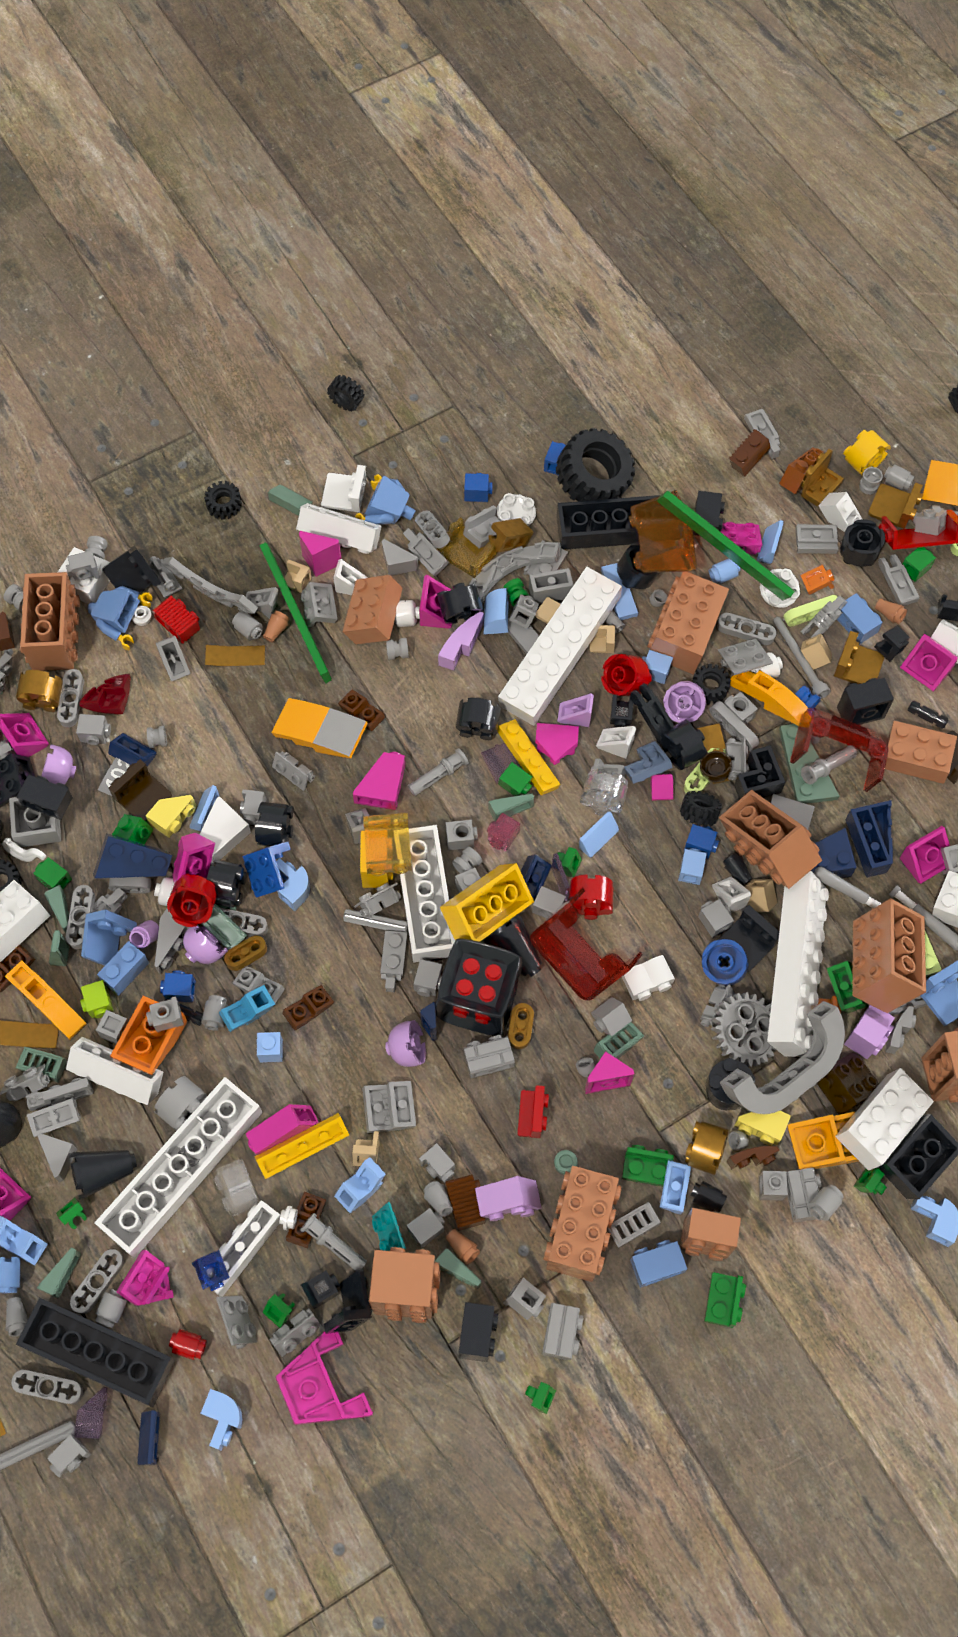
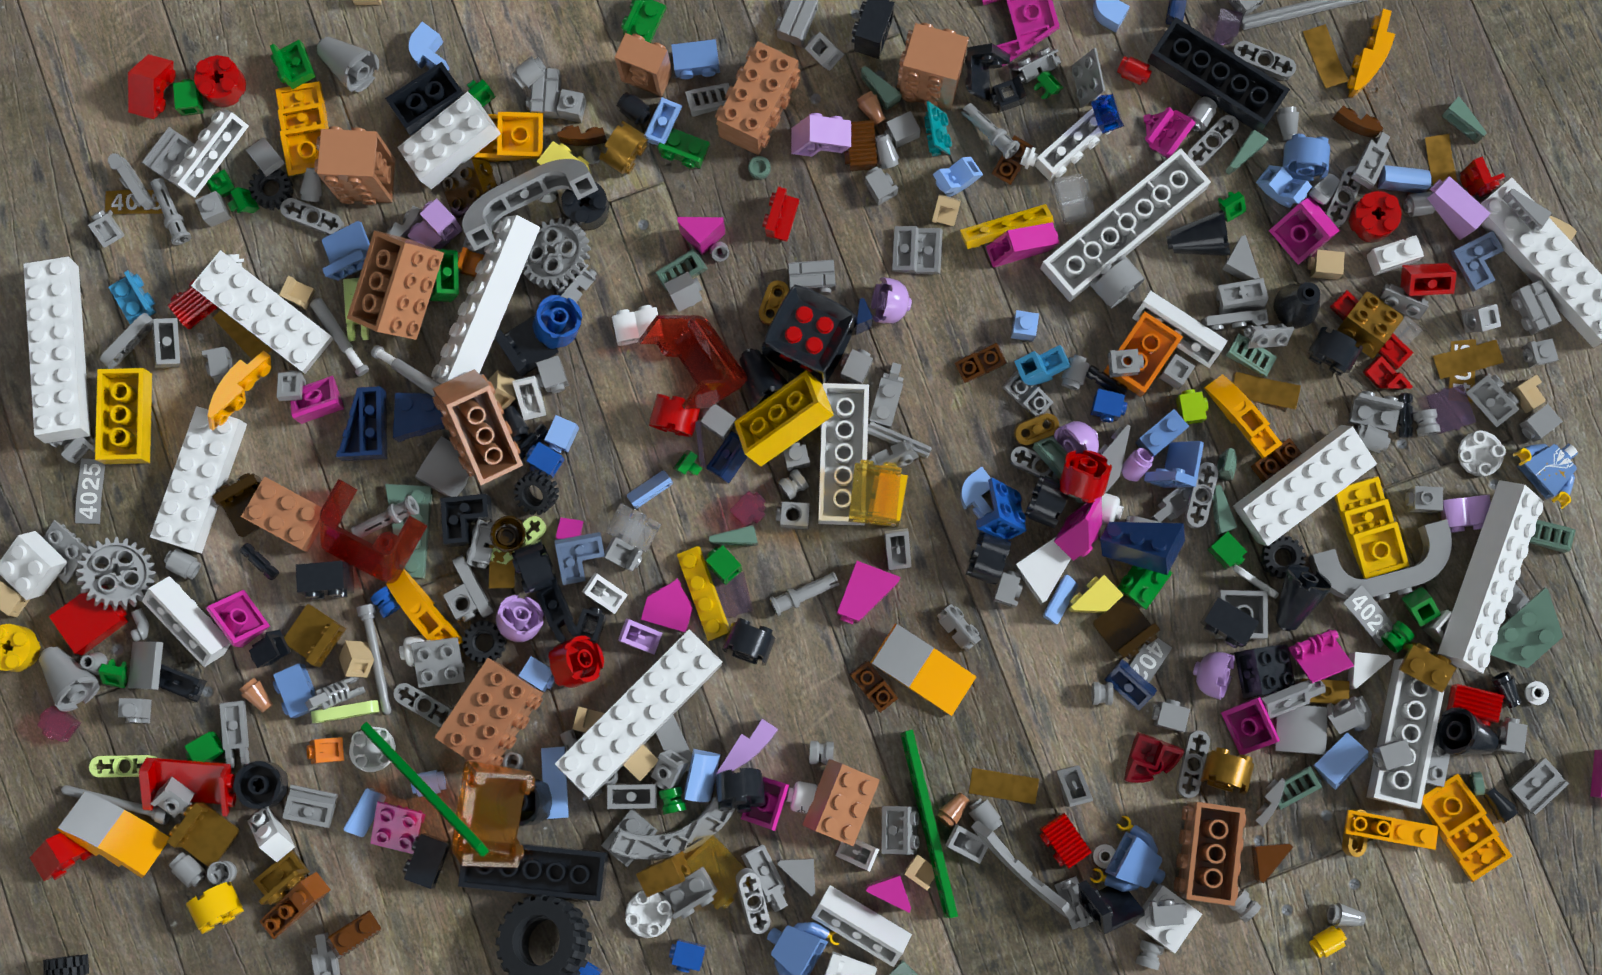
camera: 165 degrees left, 15 degrees up
(719, 856) = (532, 439): none -> black axle

